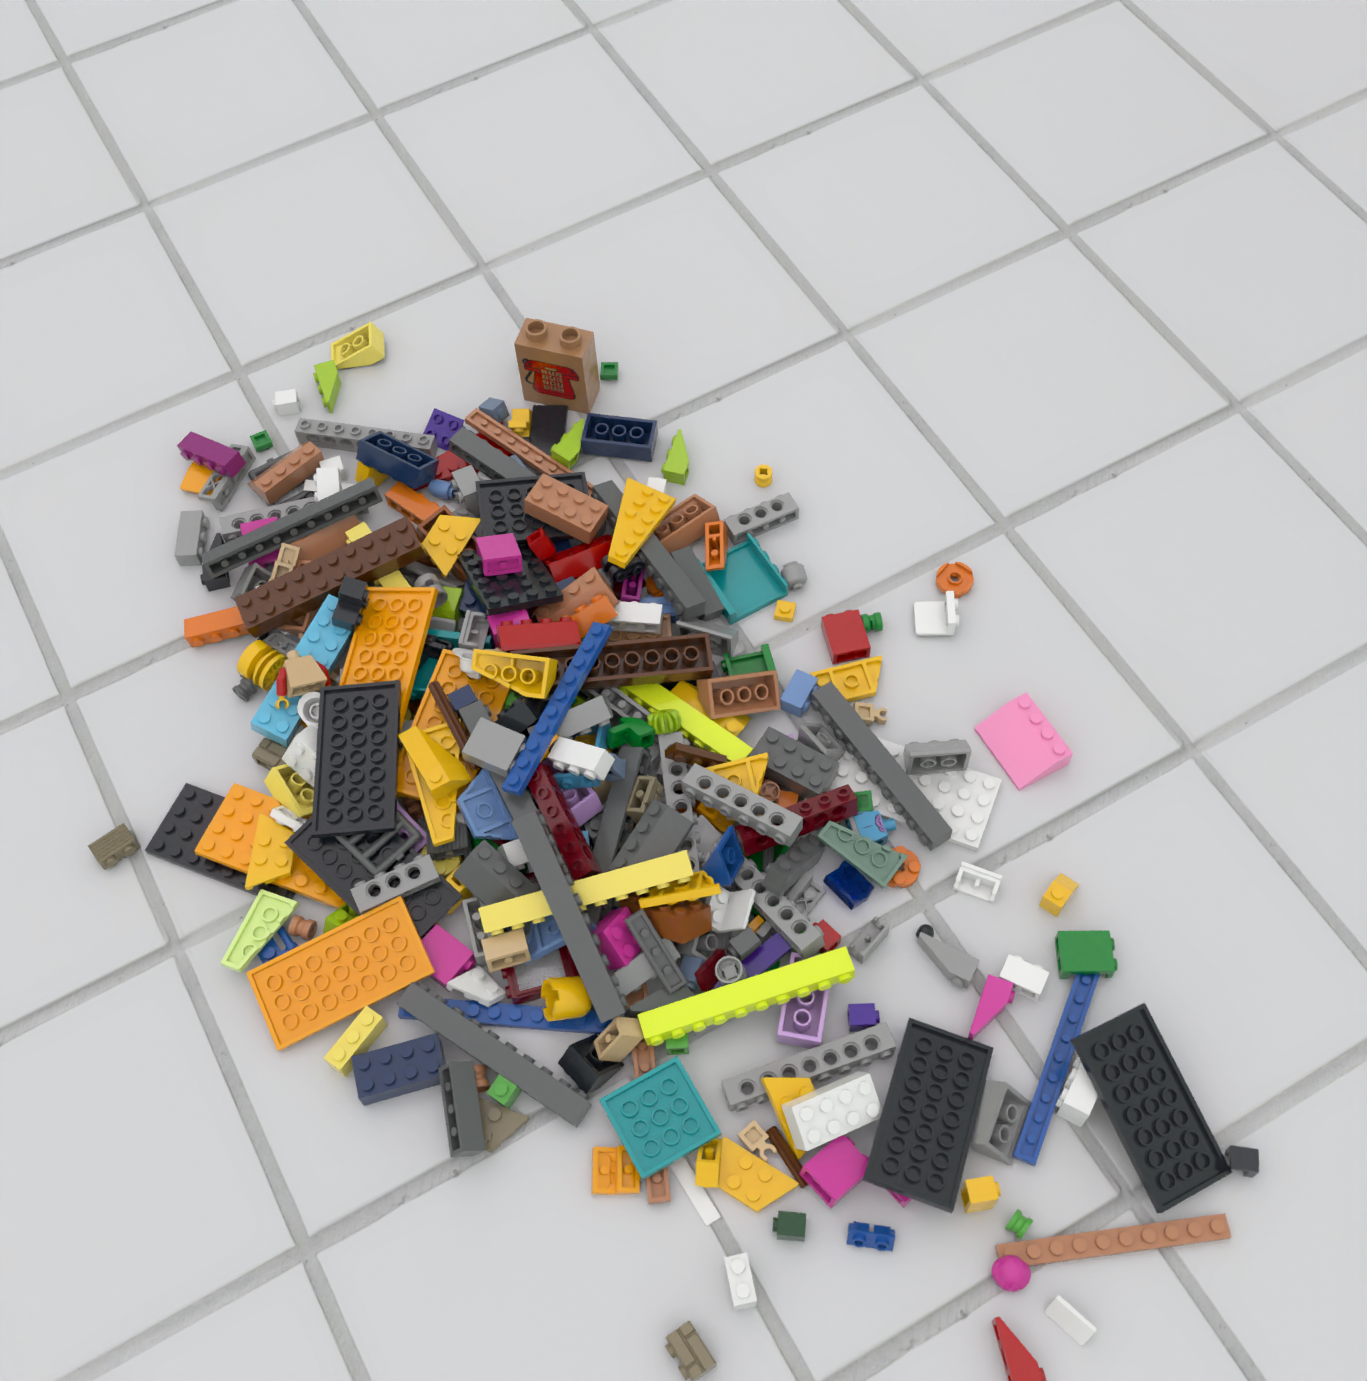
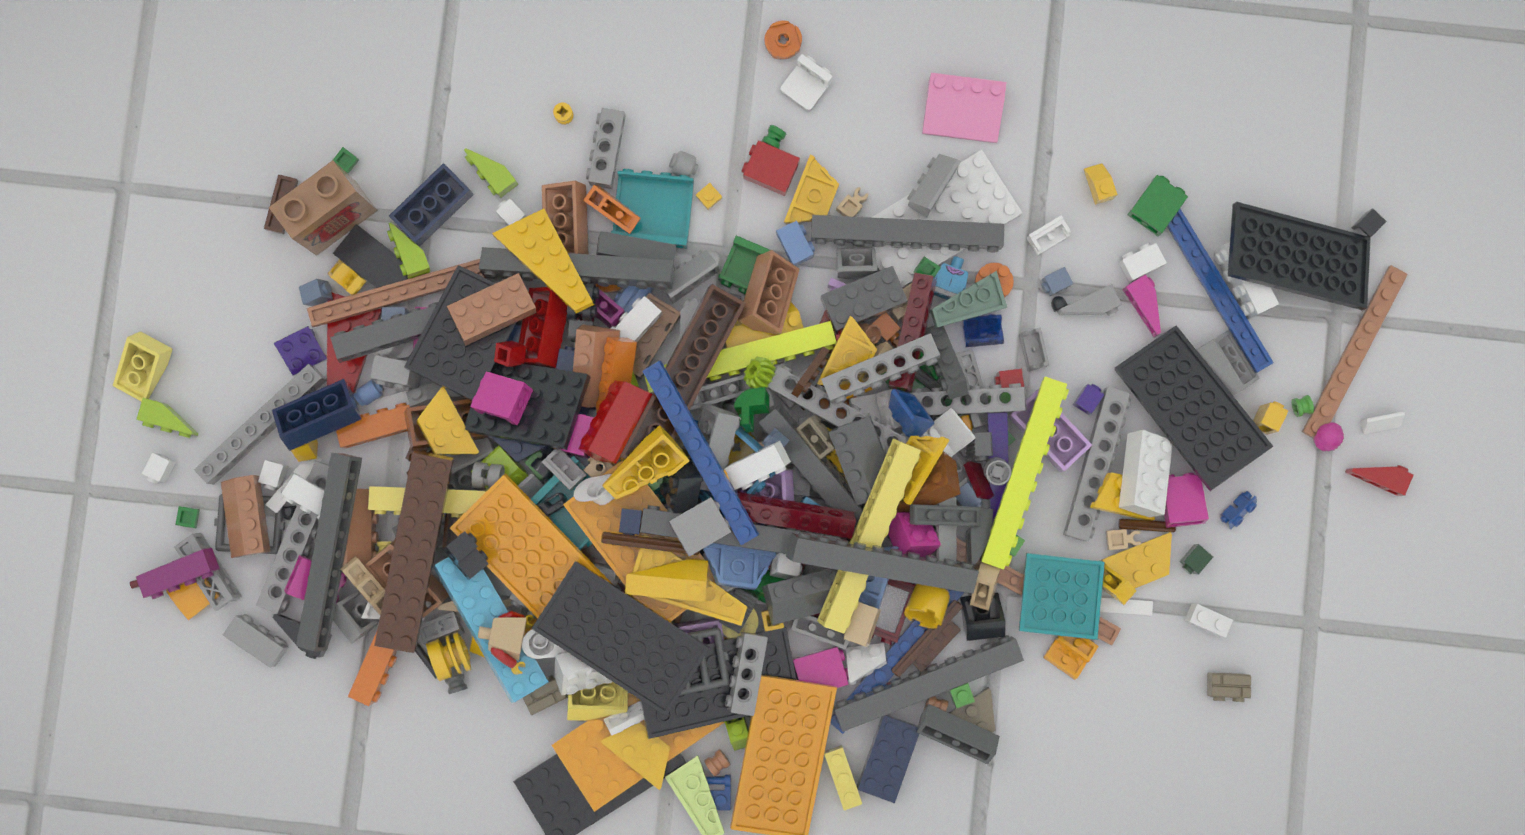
camera: 55 degrees left, 25 degrees up
(535, 1025) = (923, 642): none -> reddish brown axle
(536, 1039) = (936, 646): none -> reddish brown plate
(942, 916) = (1056, 281): none -> sand blue brick

